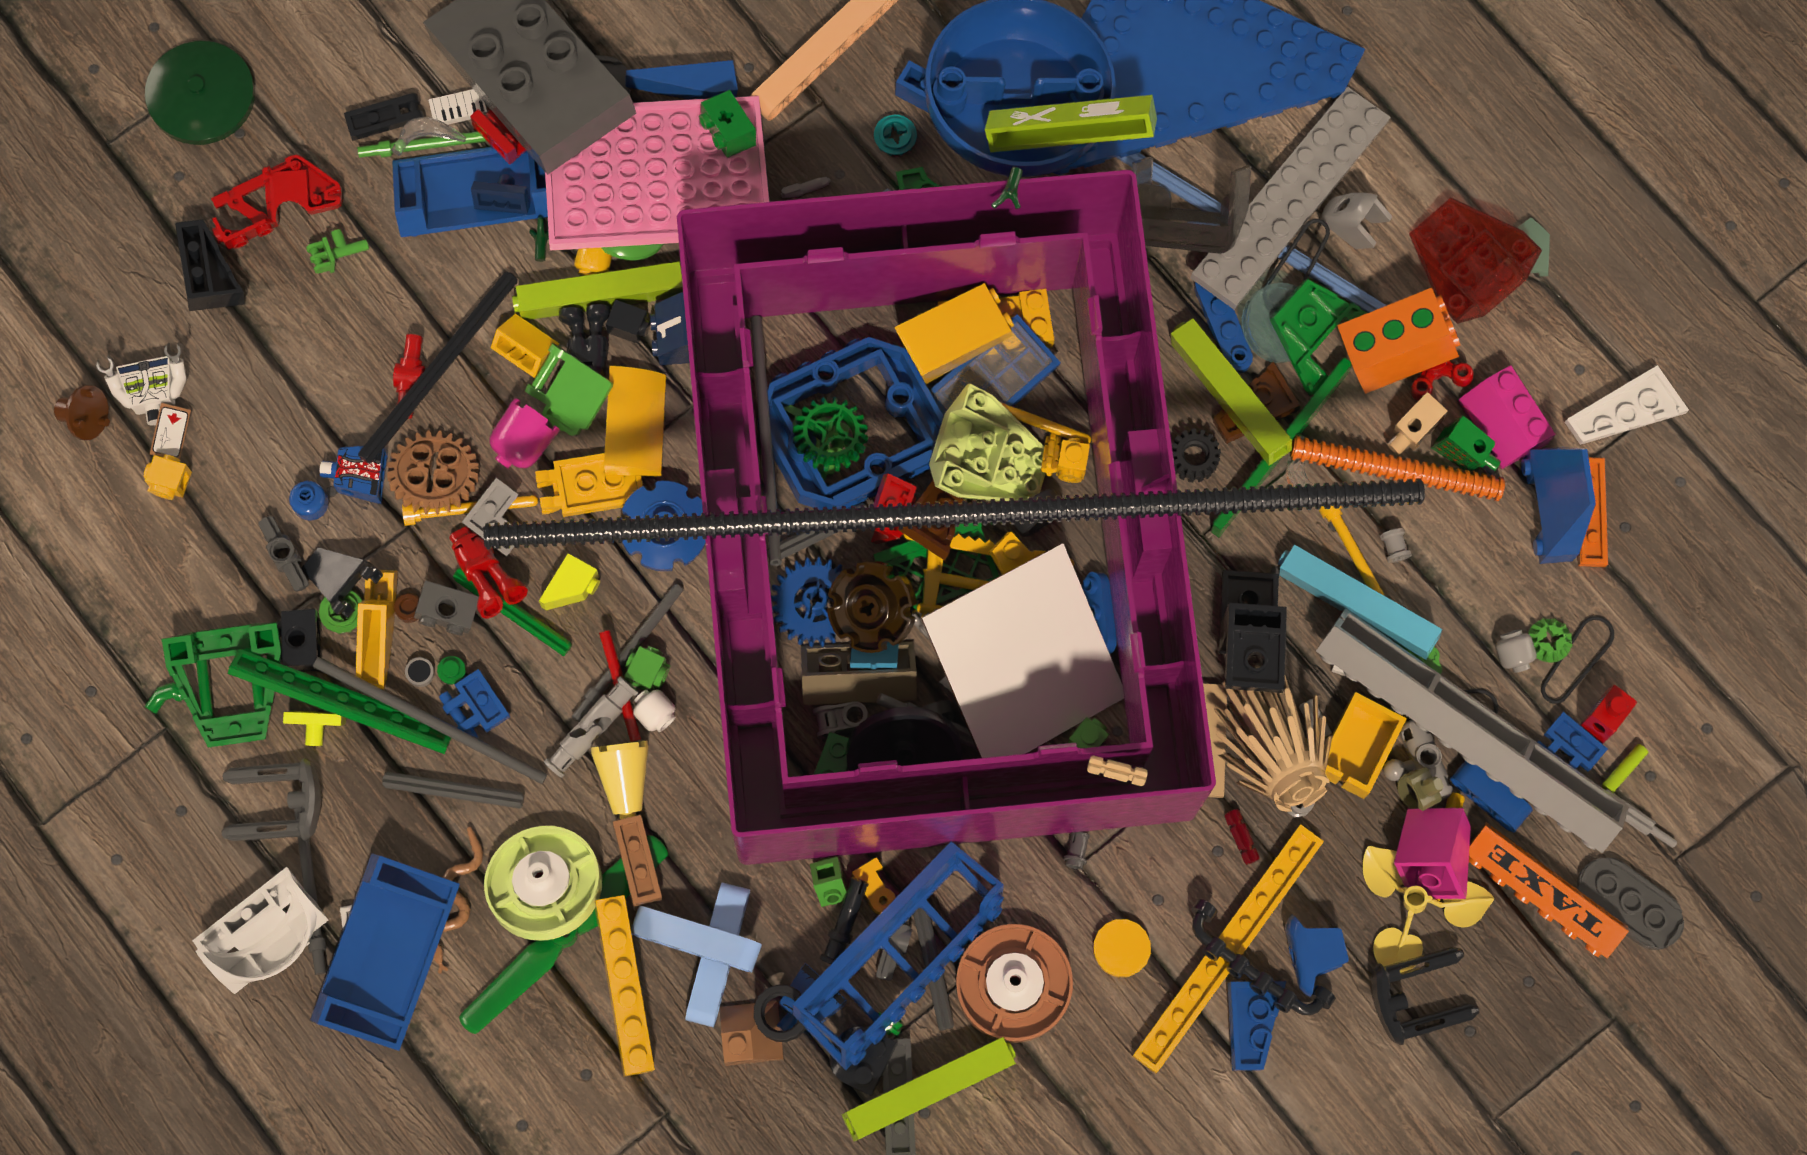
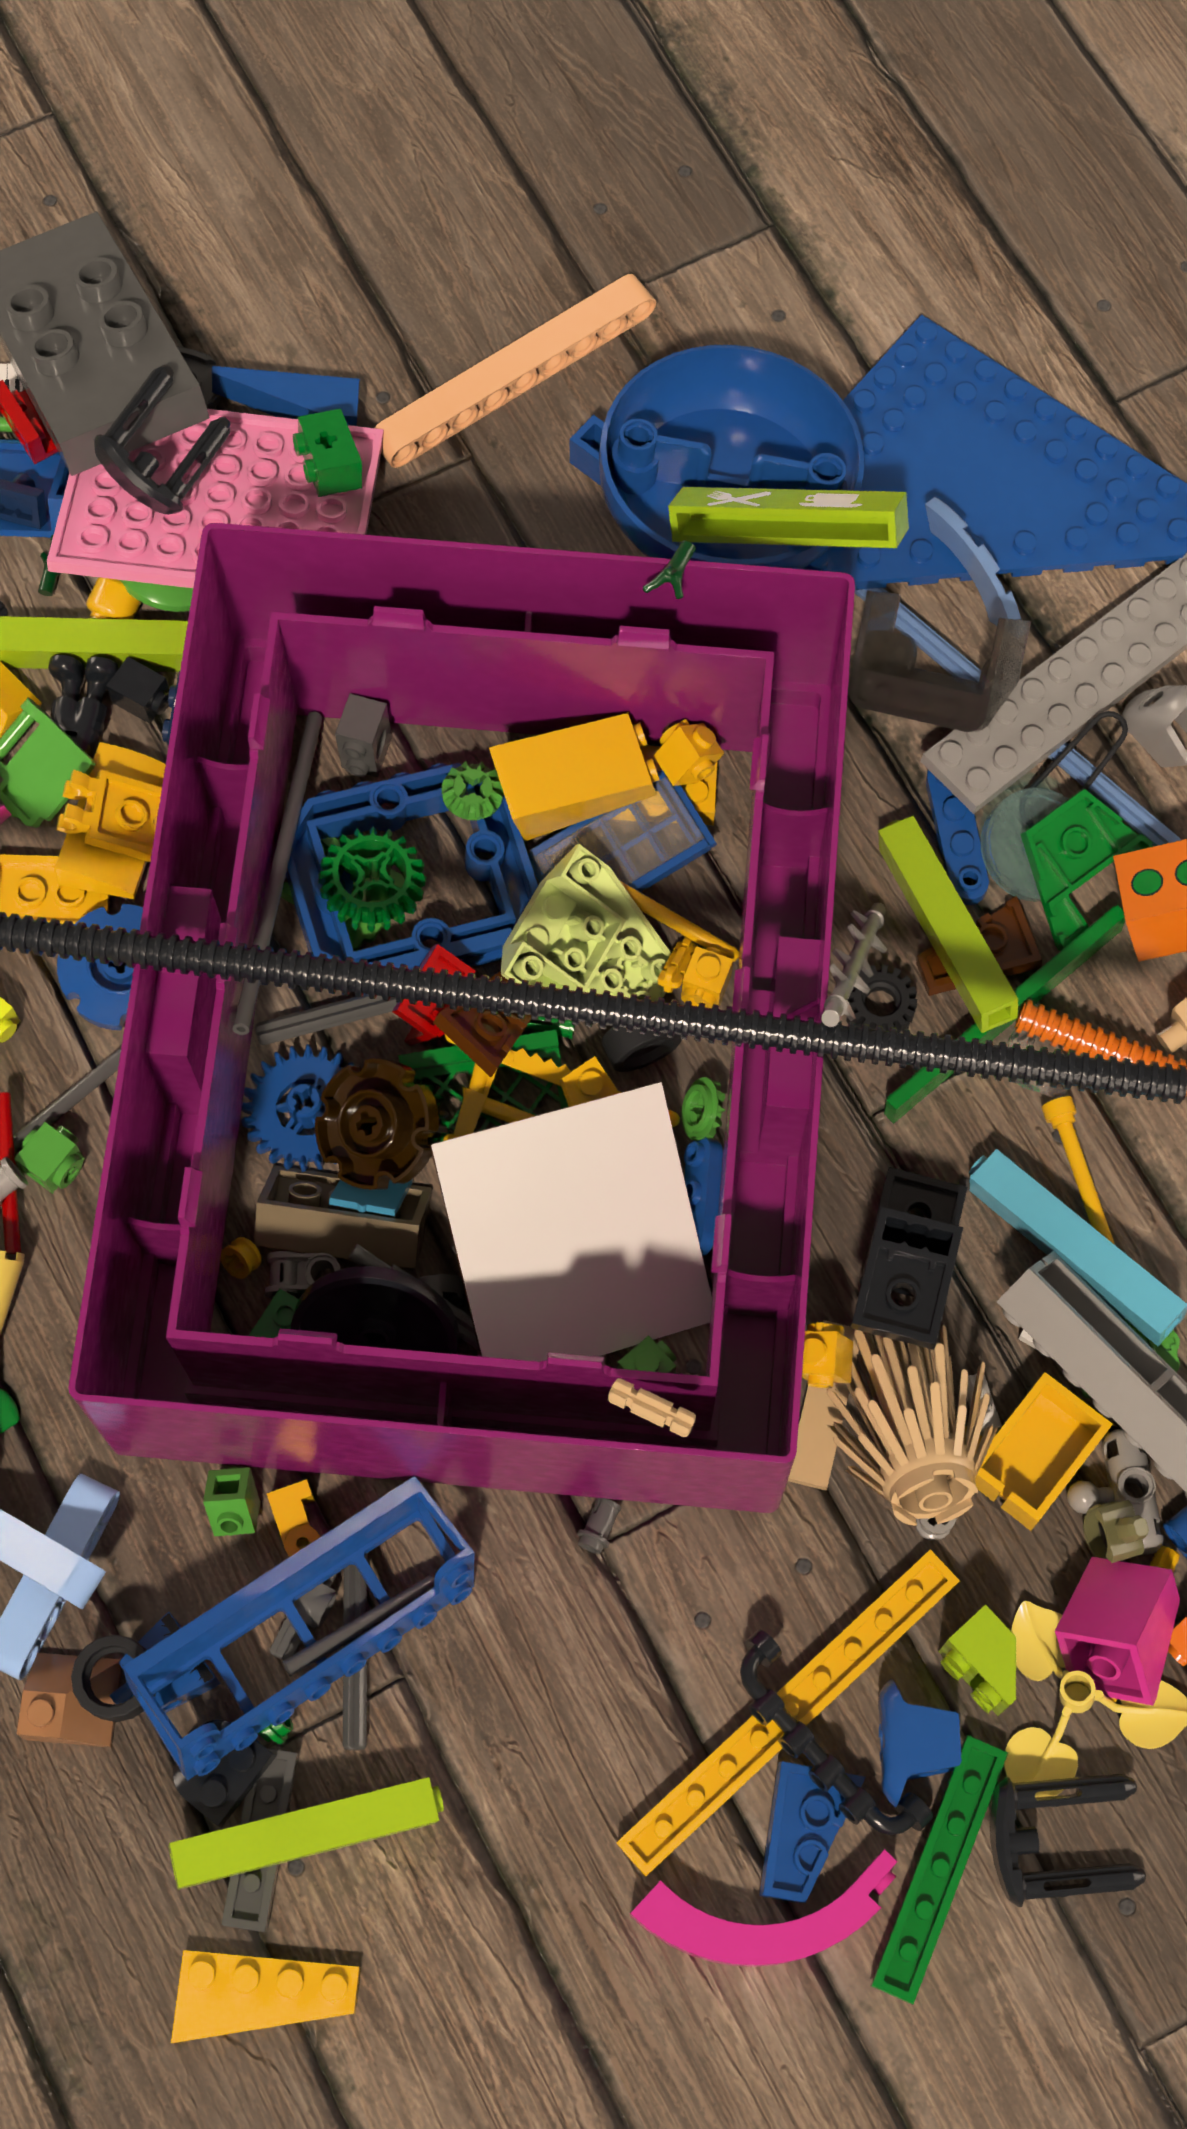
camera: 15 degrees right, 5 degrees down
(599, 170) = (136, 475): none -> black piece
(649, 418) = (117, 812): none -> yellow tile
(654, 710) = (46, 1215): white head -> none
(795, 715) = (241, 1257): none -> bush
(797, 329) = (363, 736): none -> dark grey brick
(841, 935) = (244, 1557): black pin -> none
(887, 367) = (472, 806): none -> bright green gear
(901, 125) = (543, 506): teal gear -> none
(936, 946) = (355, 1627): none -> dark grey bar
(1009, 1010) = (472, 1742): nougat piece -> none
(1030, 303) = (688, 753): none -> yellow brick
(1084, 543) = (701, 1095): none -> bright green gear
(1121, 948) = (634, 1680): yellow tile -> none
(1182, 439) = (837, 1003): none -> light grey plant
(1203, 125) = (977, 560): none -> medium blue tile
(1214, 1104) = (763, 1945): none -> dark pink arch
(1216, 709) = (826, 1355): none -> yellow brick
(1242, 836) = (842, 1551): dark red axle -> none
(1345, 1031) = (939, 1870): none -> green plate
(1351, 889) = (985, 1658): none -> lime slope
(1395, 545) = (1143, 1178): light grey bush -> none

